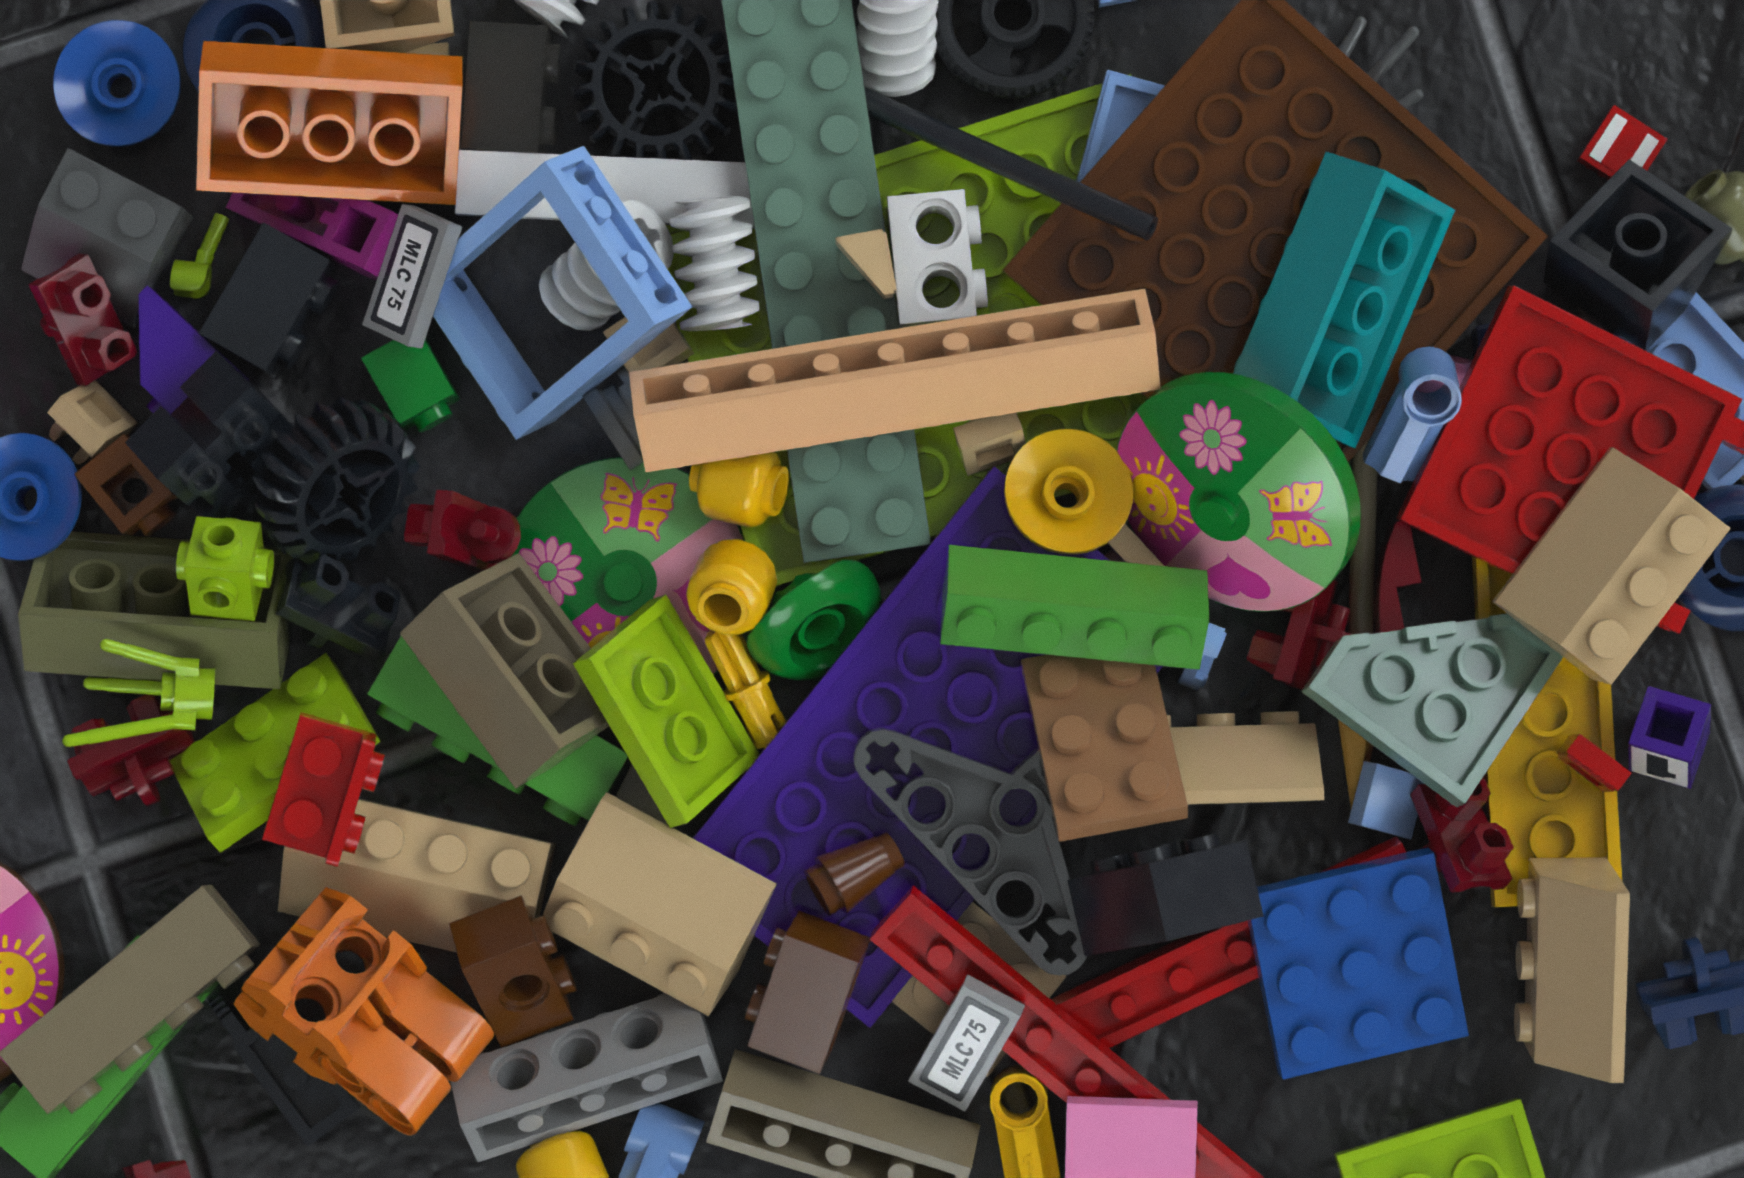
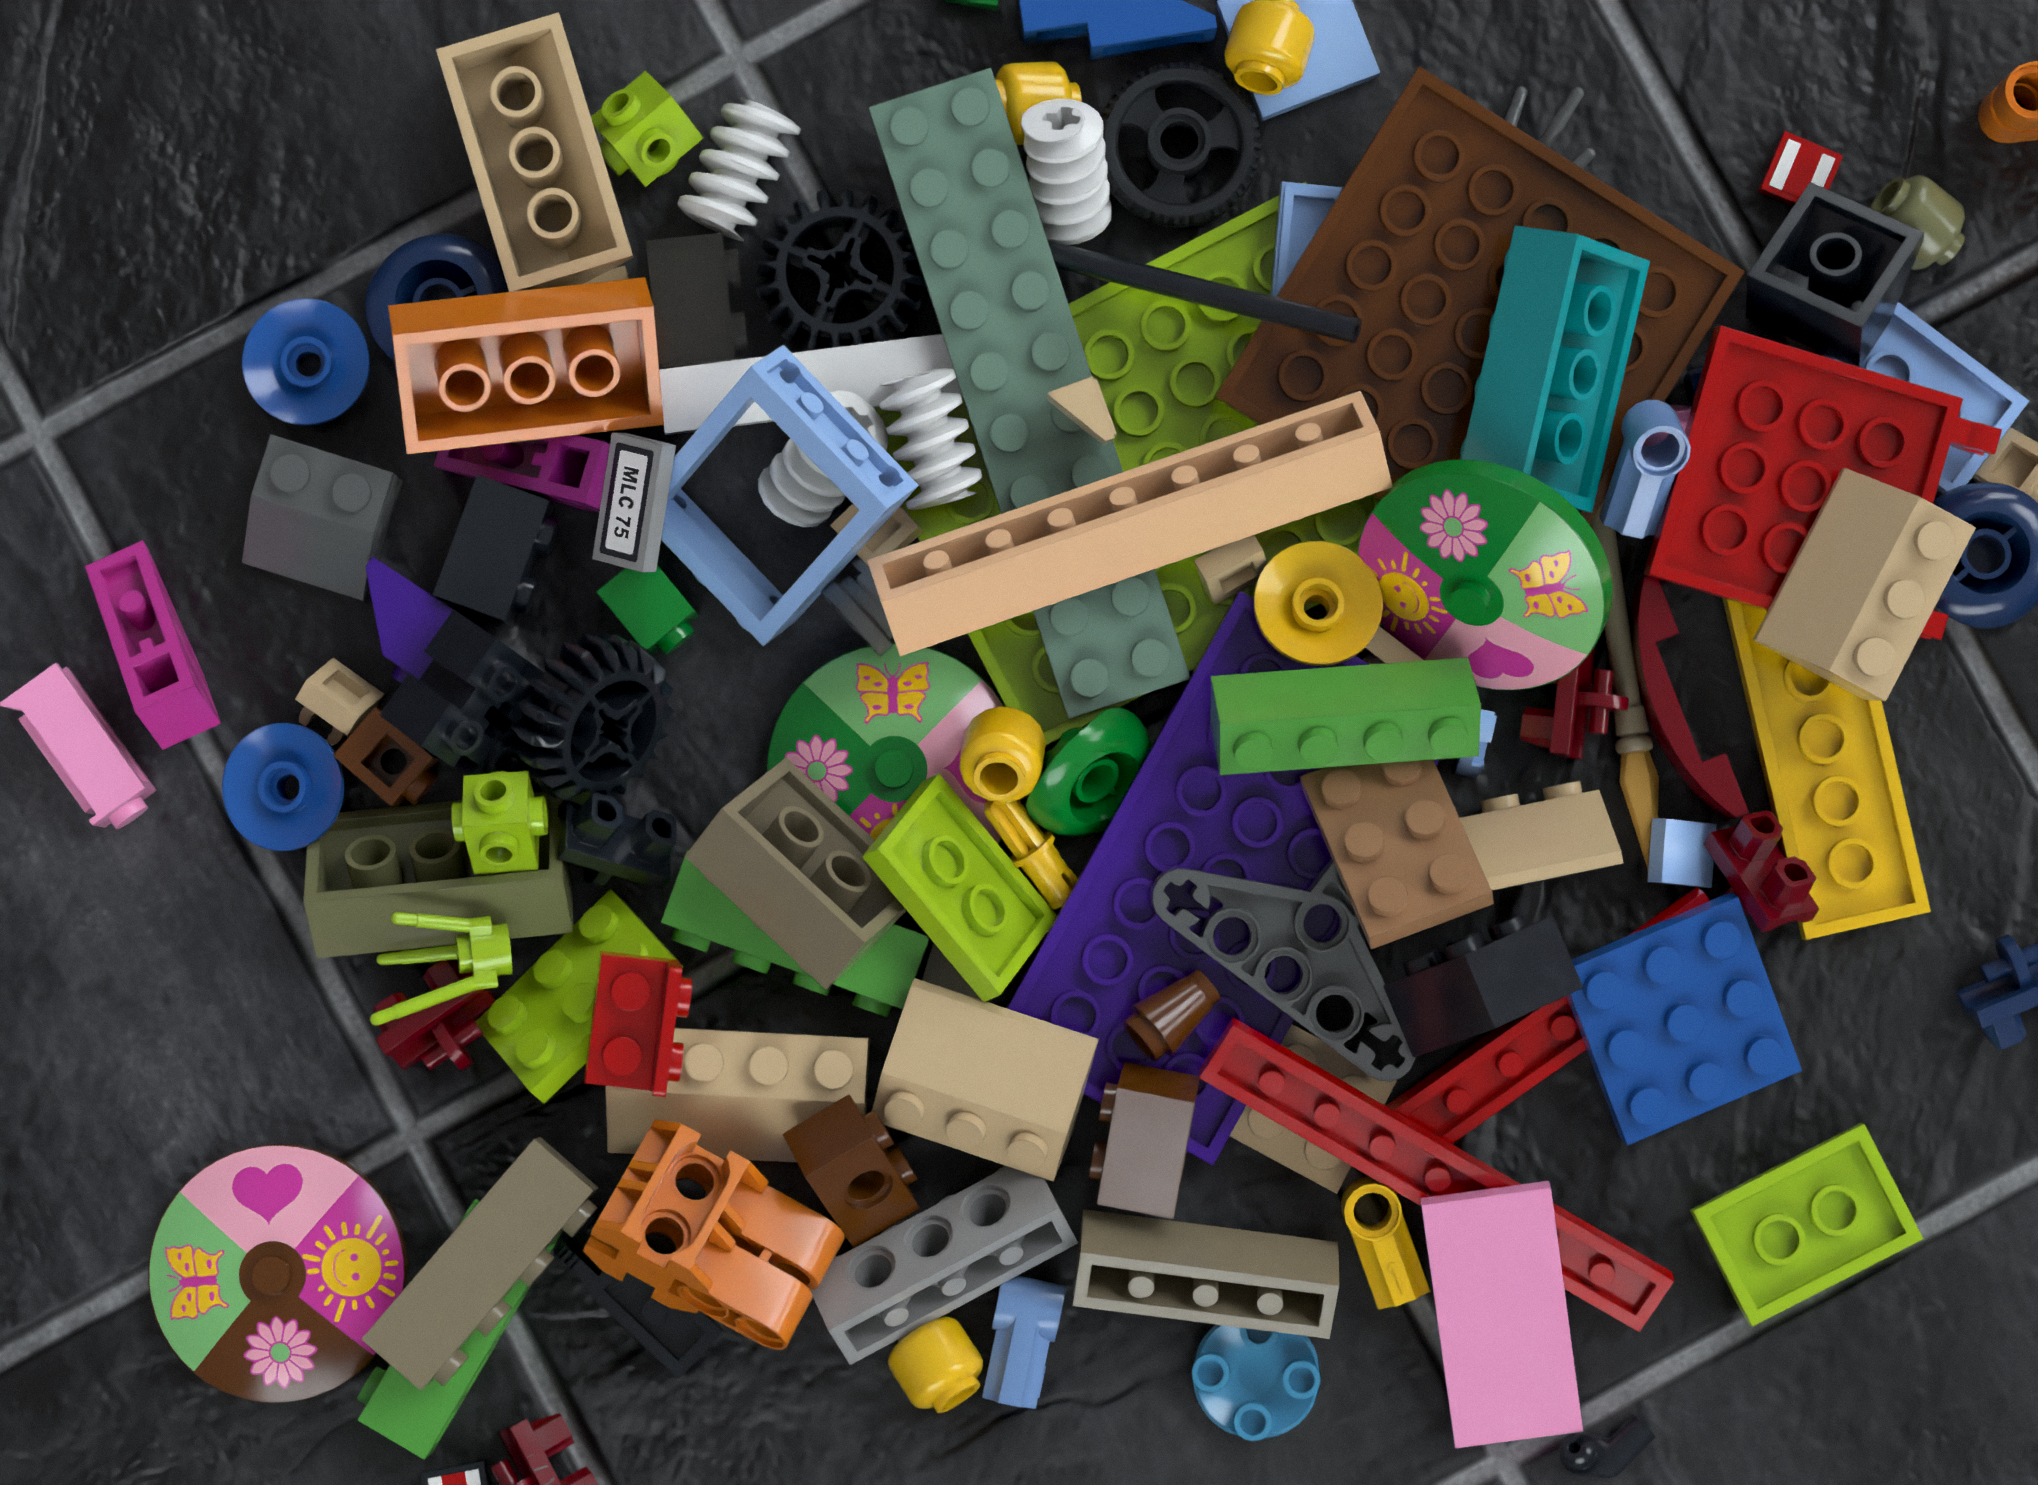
camera: 15 degrees left, 0 degrees up
(82, 320) = (314, 601): dark red hips -> none
(195, 278) = (415, 541): lime hand -> none
(463, 531) = (728, 745): dark red hips -> none
(741, 488) = (994, 656): yellow head -> none
(920, 261) = (1132, 401): white brick -> none
(966, 1043) = (1312, 1163): tile -> none
(1436, 694) = (1714, 740): sand green plate -> none
(1574, 966) = (1895, 984): tan slope -> none
(1592, 763) = (1878, 782): red tile -> none
(1669, 737) = (1948, 743): dark purple brick -> none

